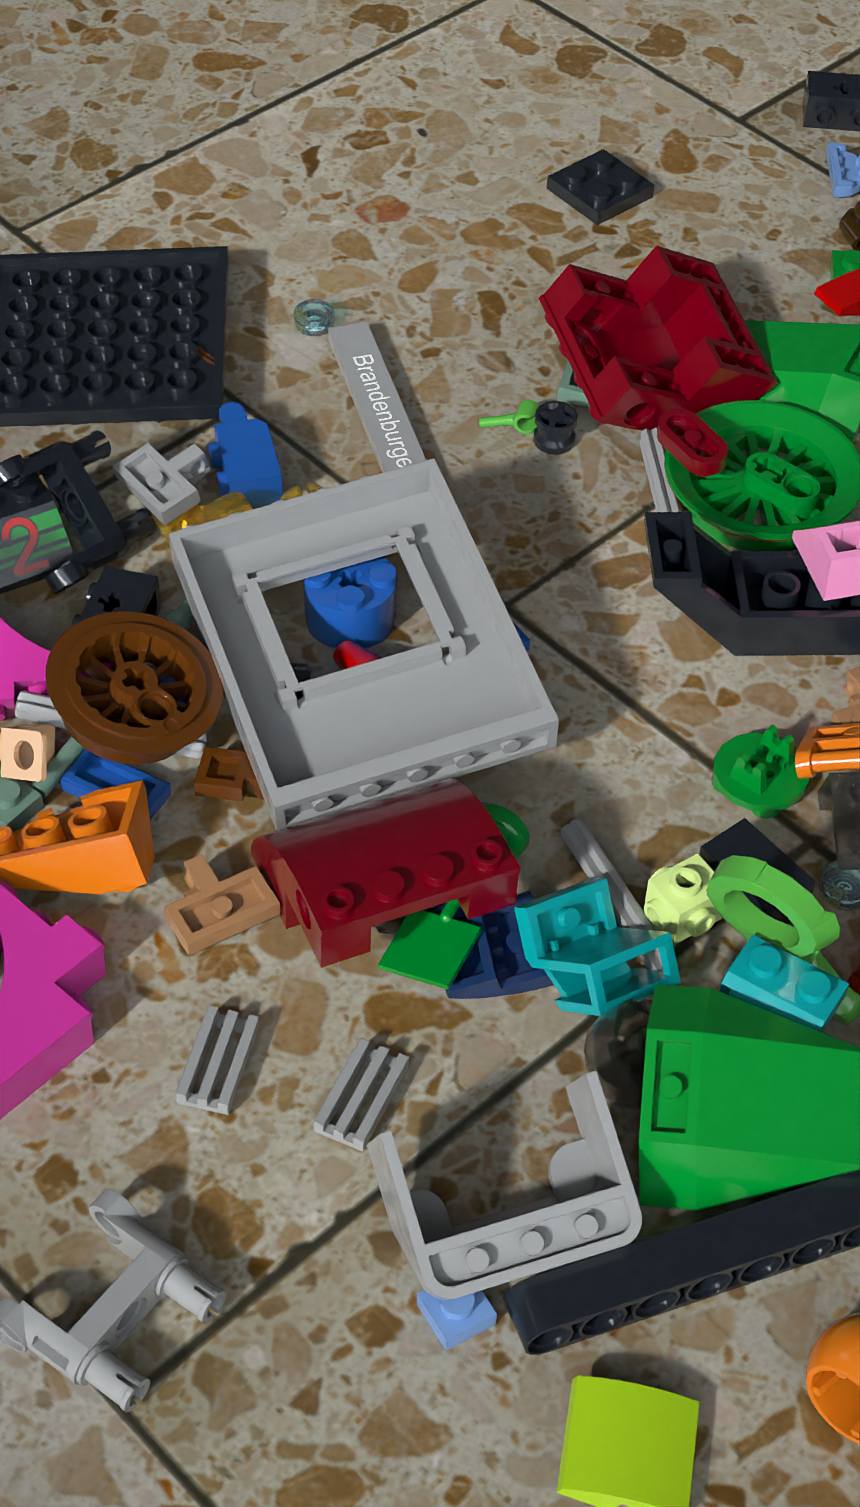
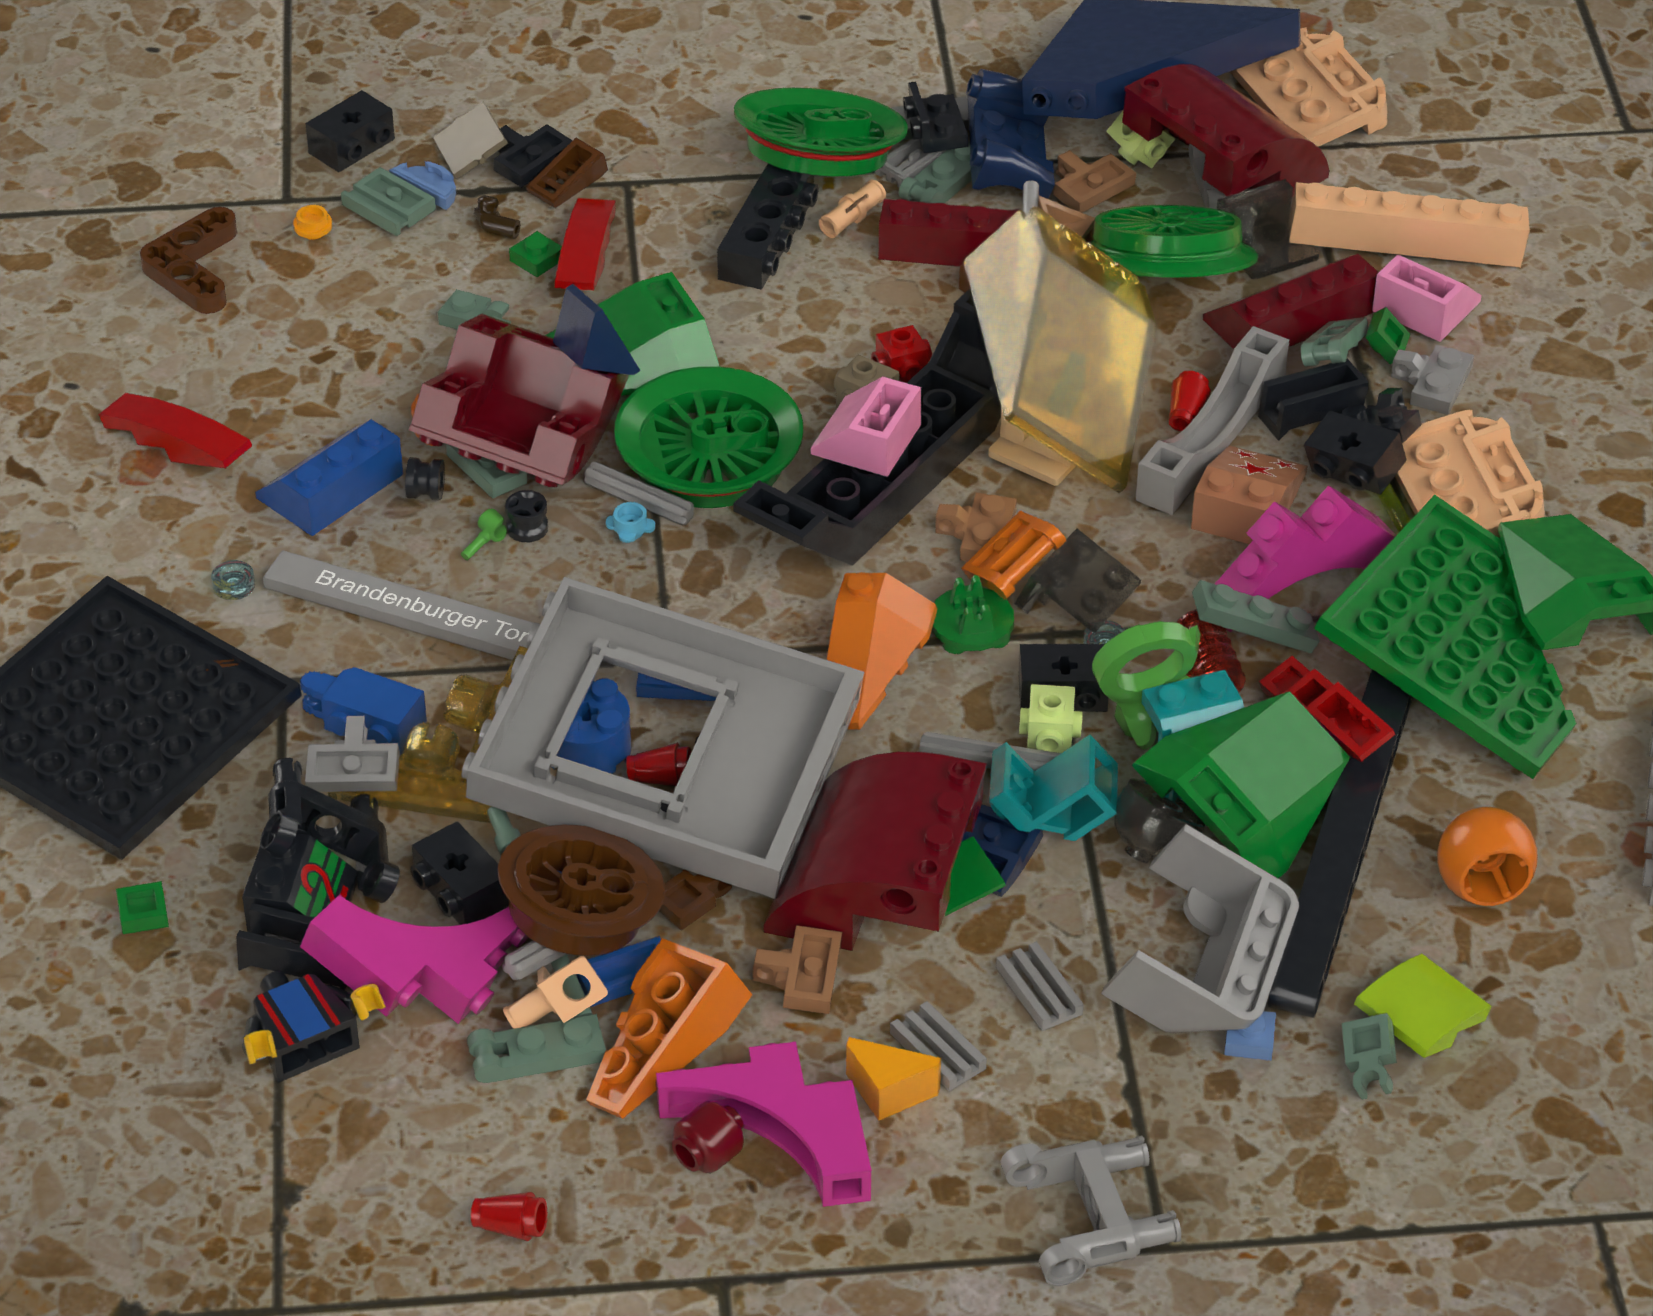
camera: 50 degrees left, 5 degrees down
(133, 1045) = (891, 1076): none -> light orange slope
(423, 198) = (182, 432): none -> red slope
(473, 304) = (336, 477): none -> blue slope
(519, 1432) = (1367, 1048): none -> sand green plate
(527, 349) = (425, 478): none -> black wheel
(600, 186) = (275, 325): black plate -> none
(613, 97) = (211, 231): none -> reddish brown beam
(621, 490) = (630, 521): none -> medium azure plate
(652, 710) = (876, 632): none -> orange wedge
(692, 442) = (653, 446): dark red plate -> none
(726, 140) = (312, 222): none -> light orange plate
(741, 271) = (465, 306): none -> sand green plate
(754, 333) = (589, 337): none -> dark blue slope
(798, 162) = (388, 201): none -> sand green plate

